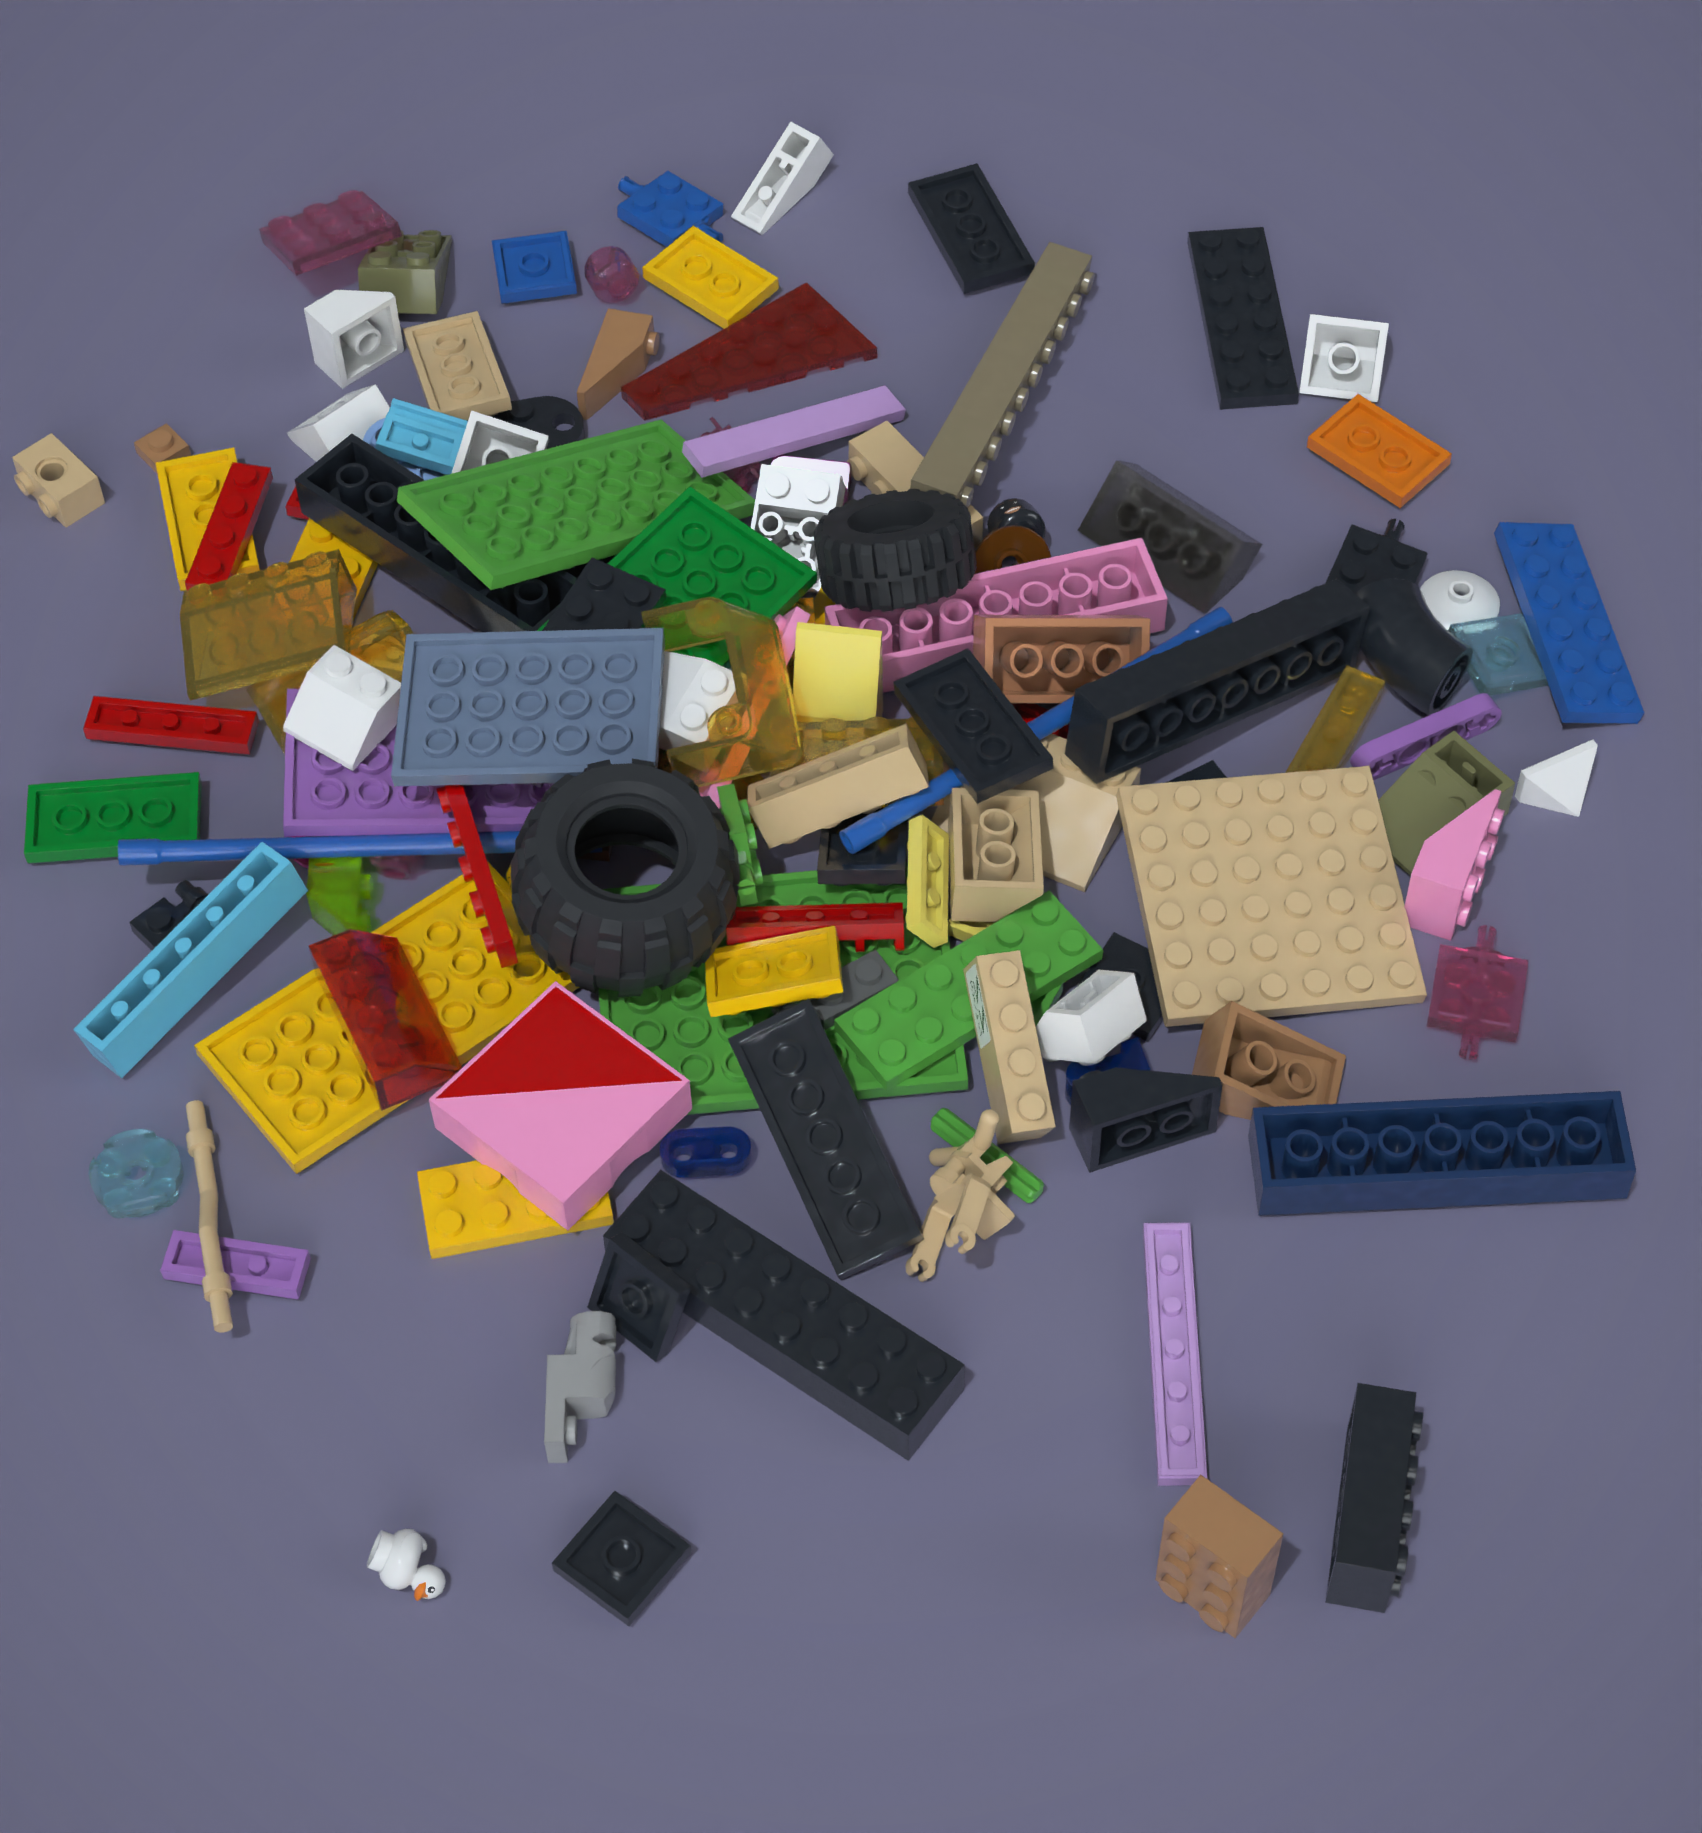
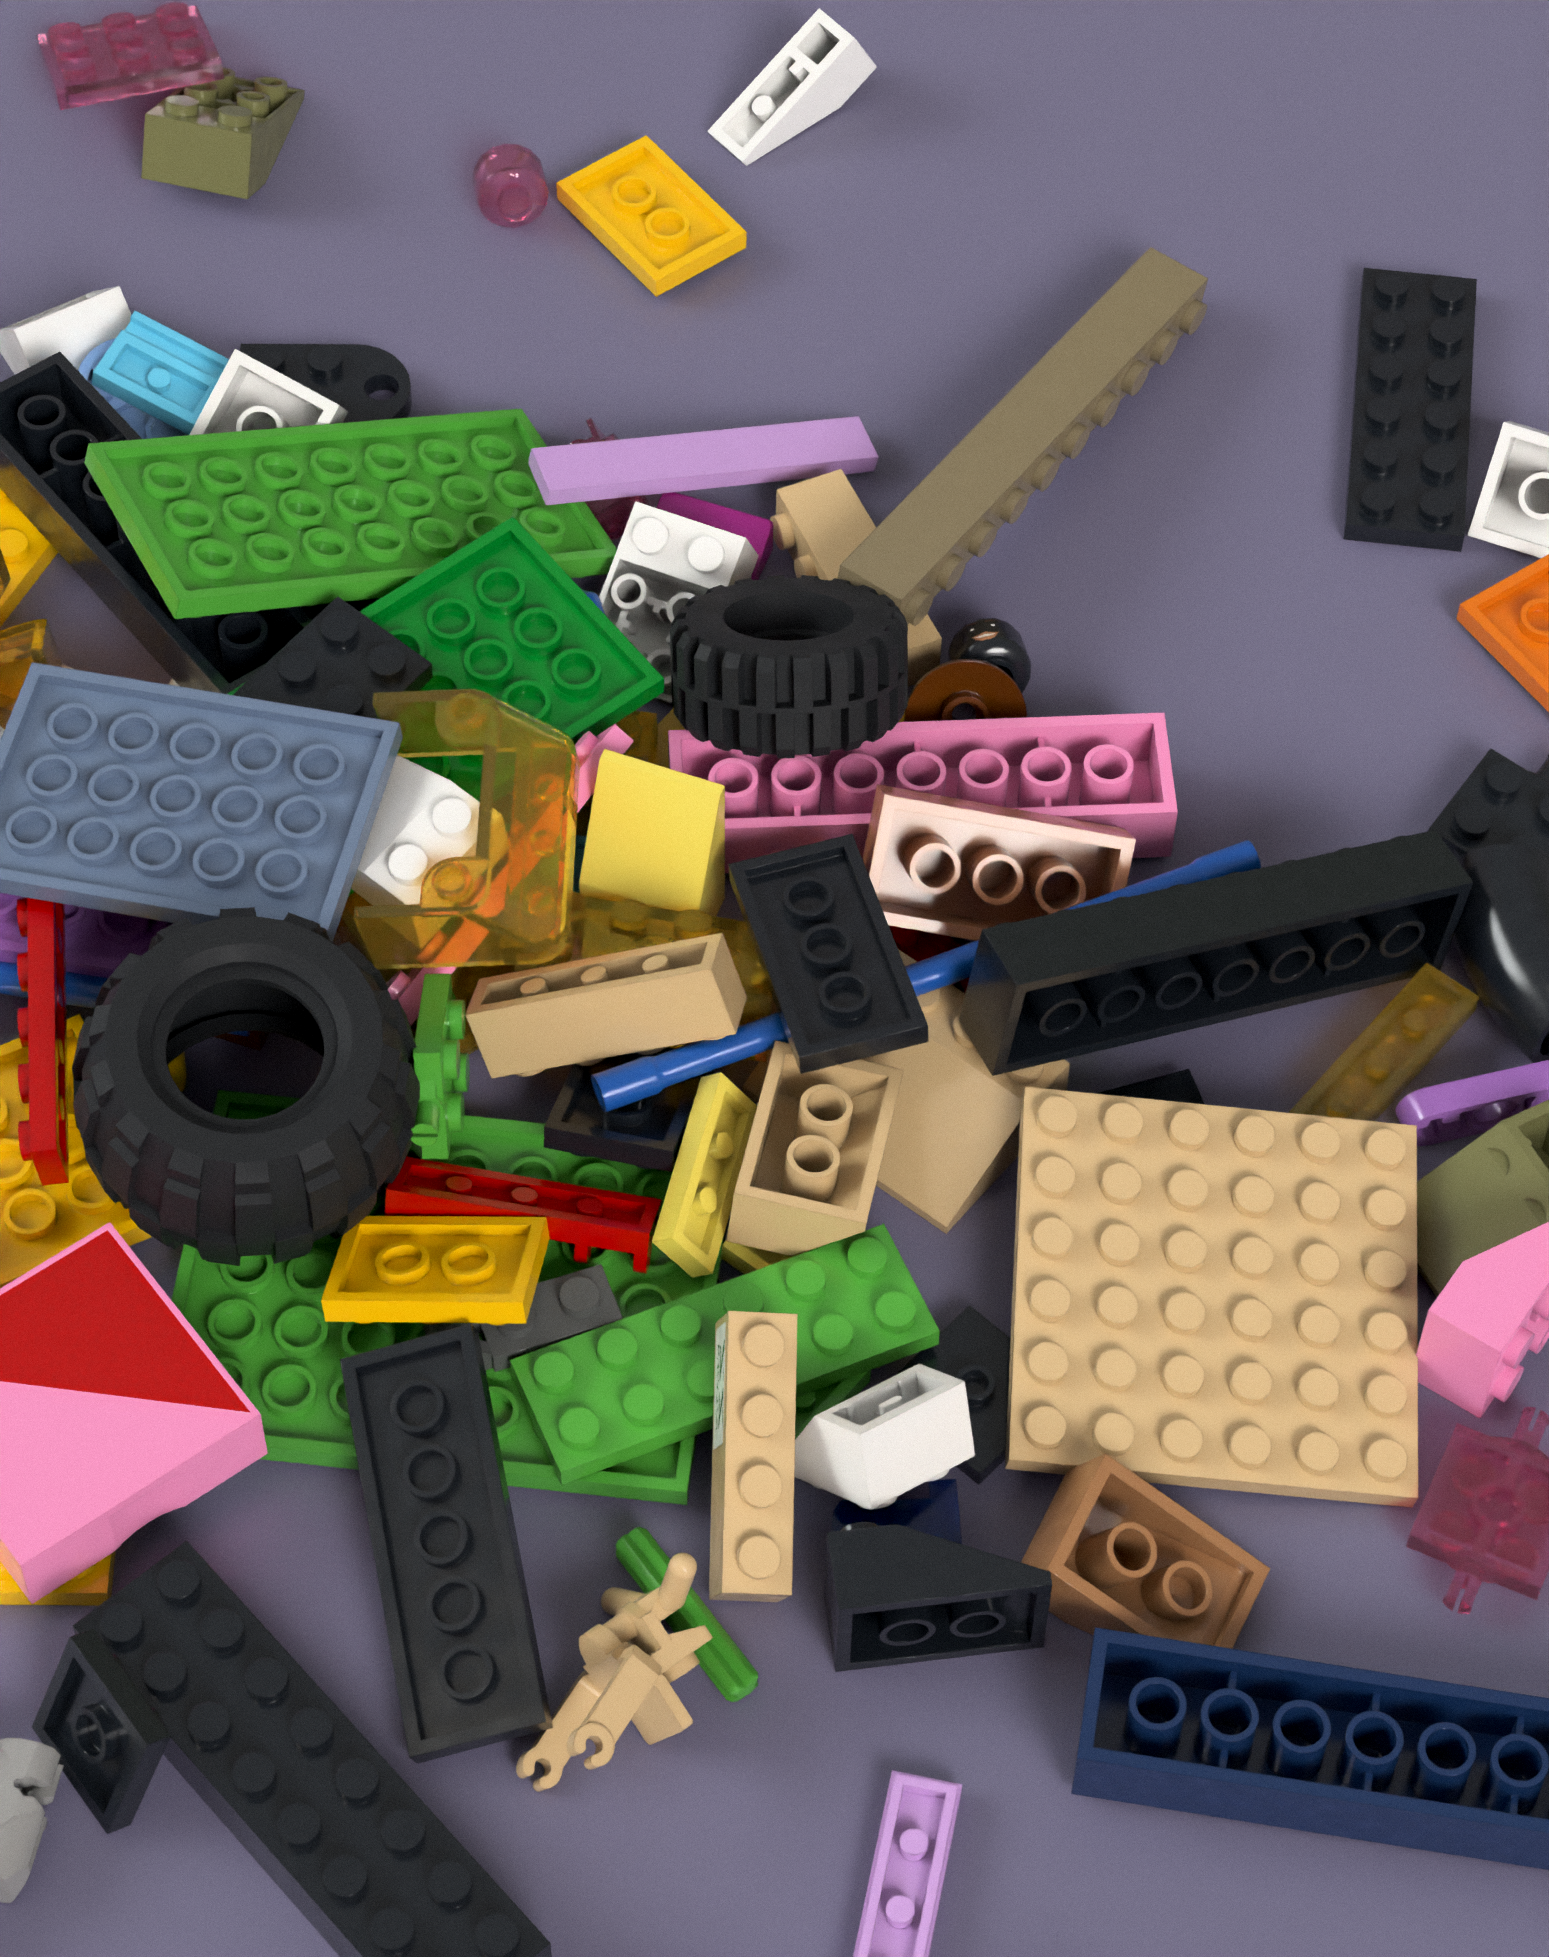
camera: 10 degrees right, 0 degrees up
(353, 333) = (118, 206): white slope -> none
(457, 367) = (250, 282): tan plate -> none
(534, 267) = (405, 156): blue plate -> none
(617, 358) = (481, 309): medium nougat slope -> none
(668, 208) = (621, 103): blue plate -> none
(705, 1151) = (274, 1520): clear blue plate -> none
(754, 353) = (685, 336): clear red wing -> none
(971, 228) = (1046, 207): black plate -> none
(1189, 545) = (1227, 722): clear smoke slope -> none

